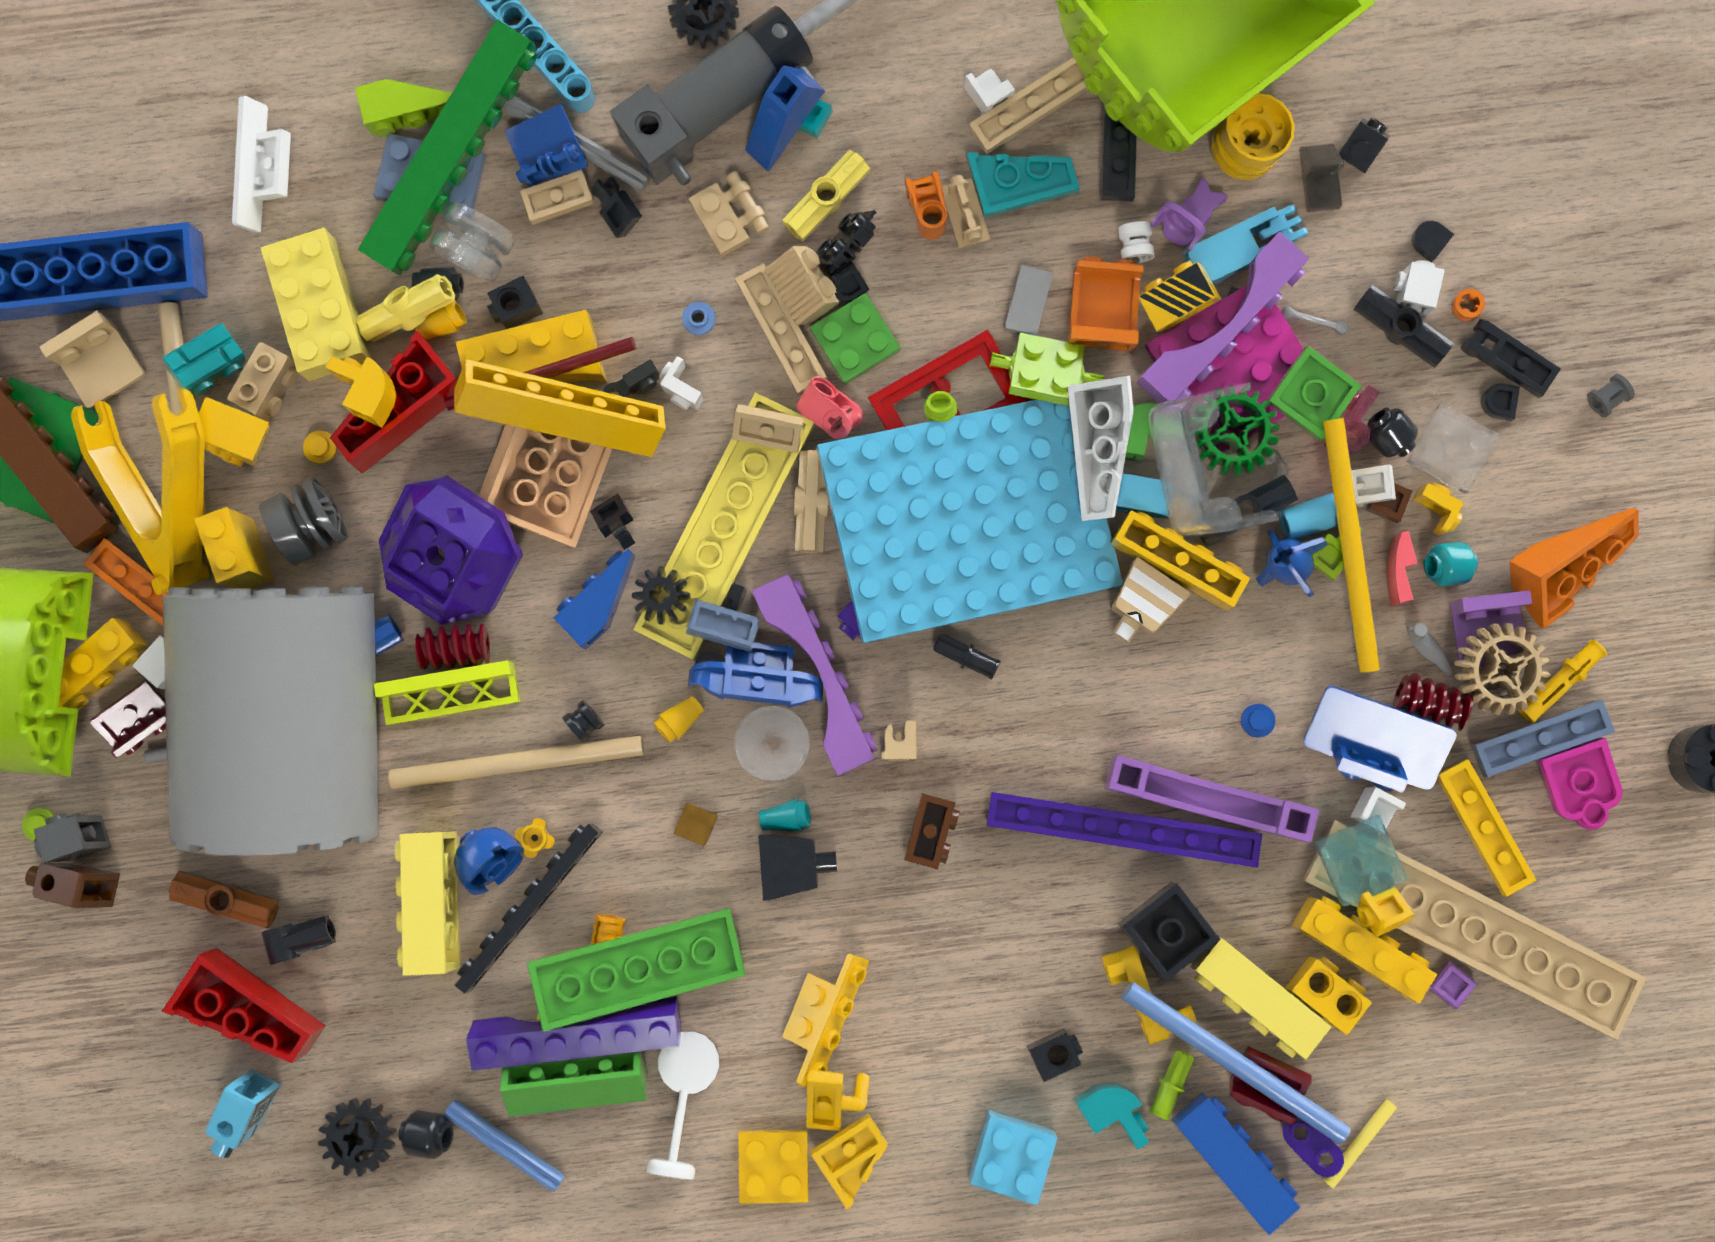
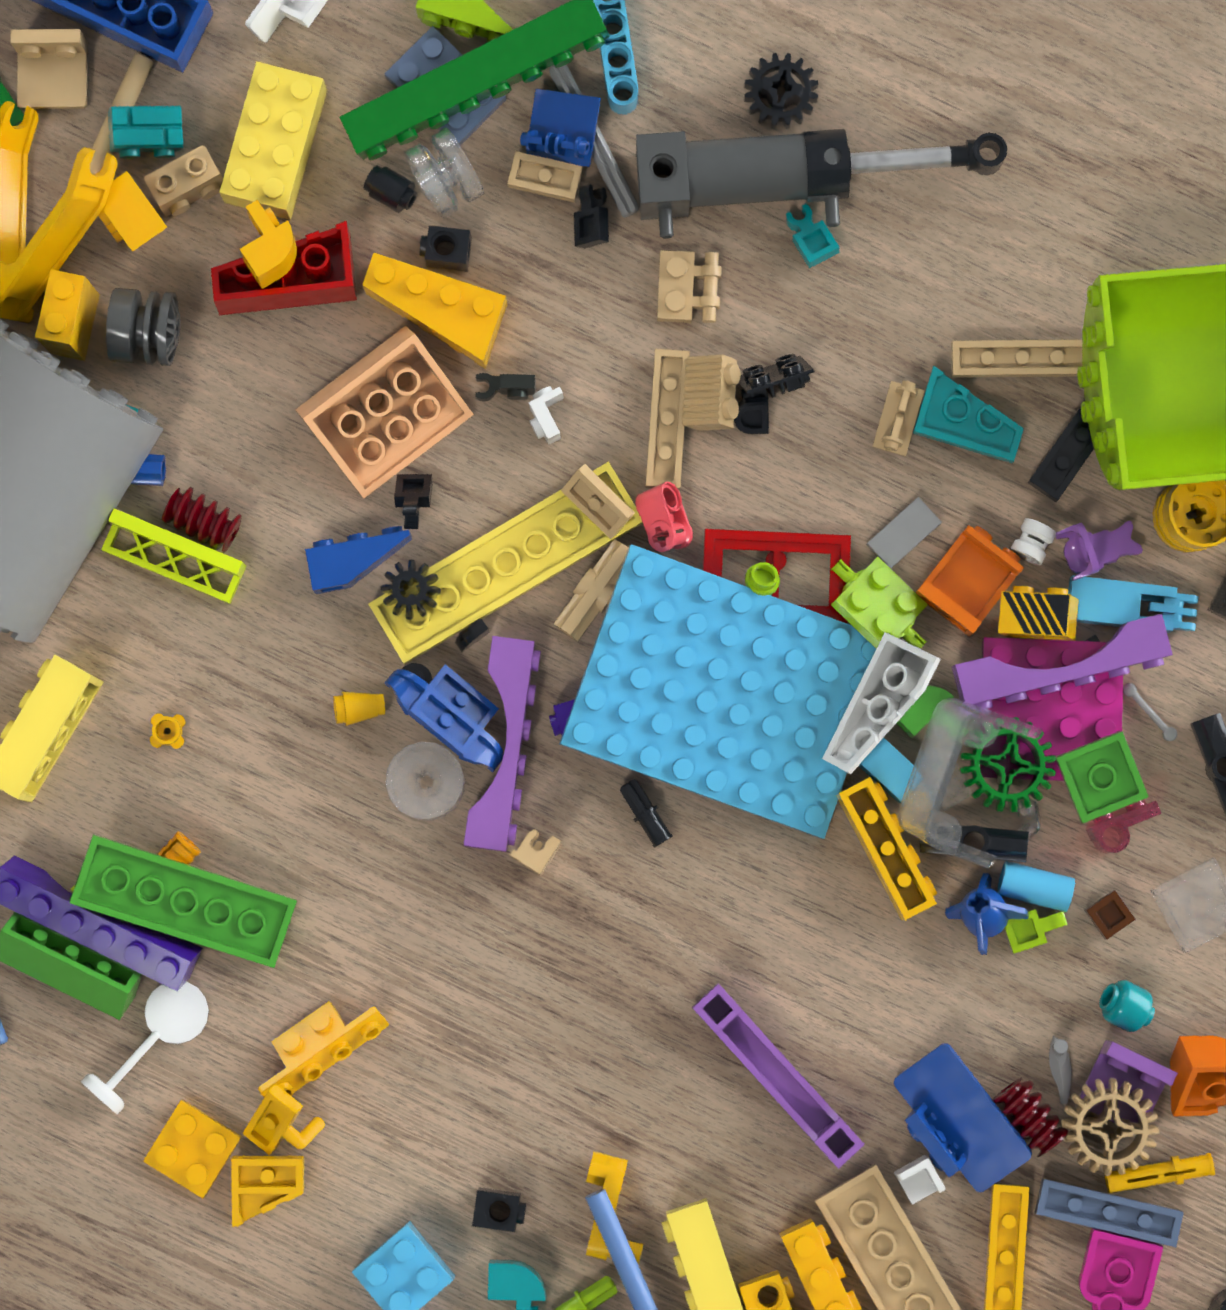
camera: 30 degrees right, 0 degrees up
(319, 447) = (197, 268): yellow plate -> none
(405, 308) = (348, 194): light yellow piece -> none
(443, 321) = (374, 223): yellow cone -> none
(475, 544) = (278, 438): dark purple piece -> none
(486, 857) = (114, 722): blue cylinder -> none
(516, 762) = (193, 655): tan piece -> none
(518, 917) = (110, 791): black plate -> none
(558, 408) = (425, 371): yellow brick -> none
(573, 362) = (366, 311): dark red bar -> none
(583, 721) = (274, 656): black wheel -> none
(695, 824) = (314, 809): pearl gold tile -> none
(702, 327) = (601, 374): medium blue plate -> none
(723, 625) = (448, 650): sand blue plate -> none
(781, 114) = (789, 229): blue slope -> none
(786, 817) = (398, 853): teal cone -> none
(791, 865) = (374, 897): black torso -> none
(813, 211) = (805, 318): light yellow piece -> none
(855, 338) = (728, 469): bright green plate -> none
(927, 199) = (871, 385): orange piece -> none
(930, 831) = (513, 945): reddish brown brick -> none
(987, 90) = (989, 320): white panel -> none
(1124, 829) = (685, 1054): dark purple plate -> none
(1145, 600) = (834, 865): torso -> none
(1168, 931) = (665, 1166): black brick -> none
(1258, 720) = (865, 1034): blue plate -> none
(1351, 545) = (1046, 932): yellow piece -> none
(1360, 860) = (873, 1213): clear light blue plate -> none
(1373, 485) = (1099, 890): white bracket -> none
(1384, 911) = (864, 1270): yellow bracket -> none
(1392, 432) = (1151, 856): black head -> none
(1400, 556) = (1085, 972): coral slope -> none
(1438, 499) = (1154, 941): yellow bracket -> none

